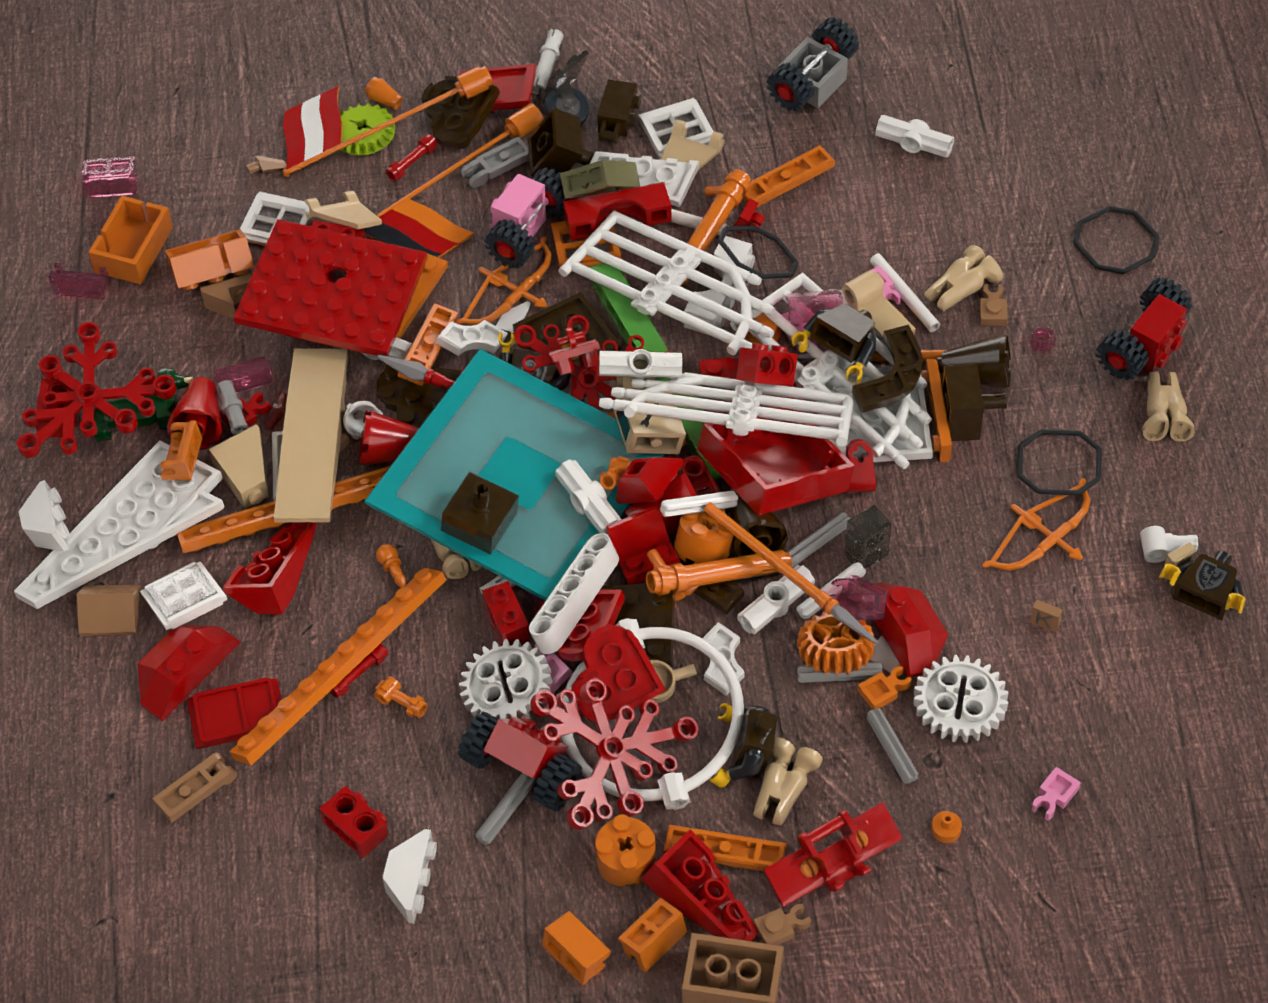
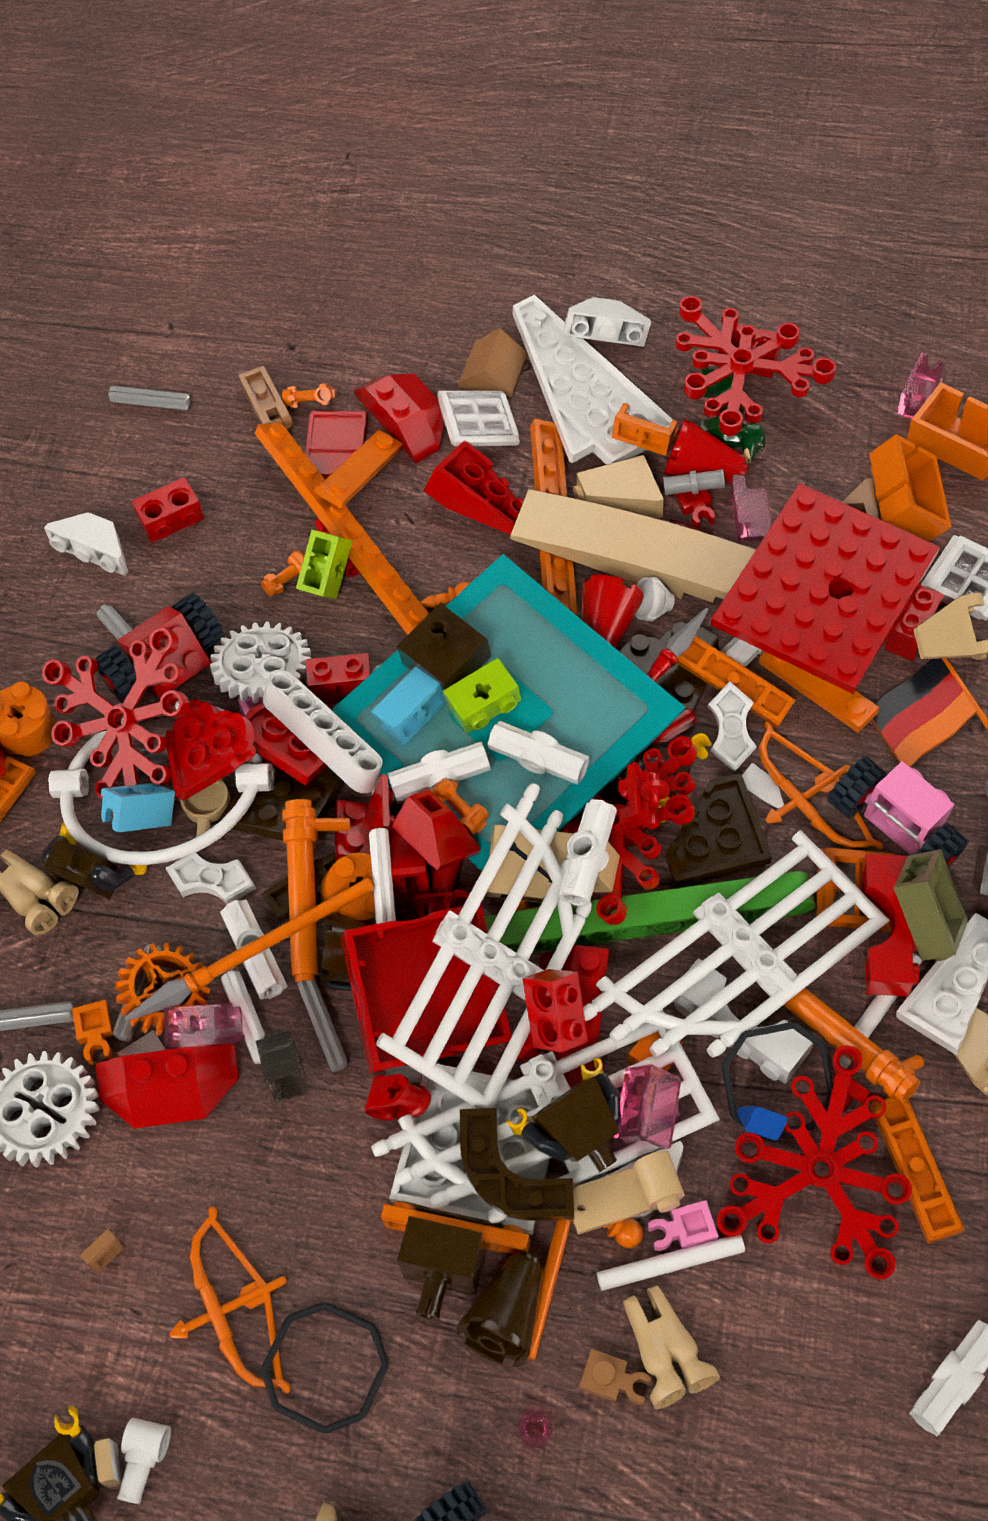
camera: 110 degrees right, 5 degrees up
(175, 738) = (323, 394): none -> orange bar
(209, 899) = (149, 397): none -> light grey axle
(271, 666) = (359, 469): none -> orange plate
(394, 654) = (324, 564): none -> lime brick
(511, 472) = (490, 682): none -> lime brick
(535, 528) = (410, 705): none -> medium azure hinge
(552, 432) = (538, 752): none -> white piece
(685, 709) = (137, 806): none -> medium azure hinge
(794, 251) = (762, 1121): none -> blue slope
(811, 218) = (832, 1125): none -> red plant

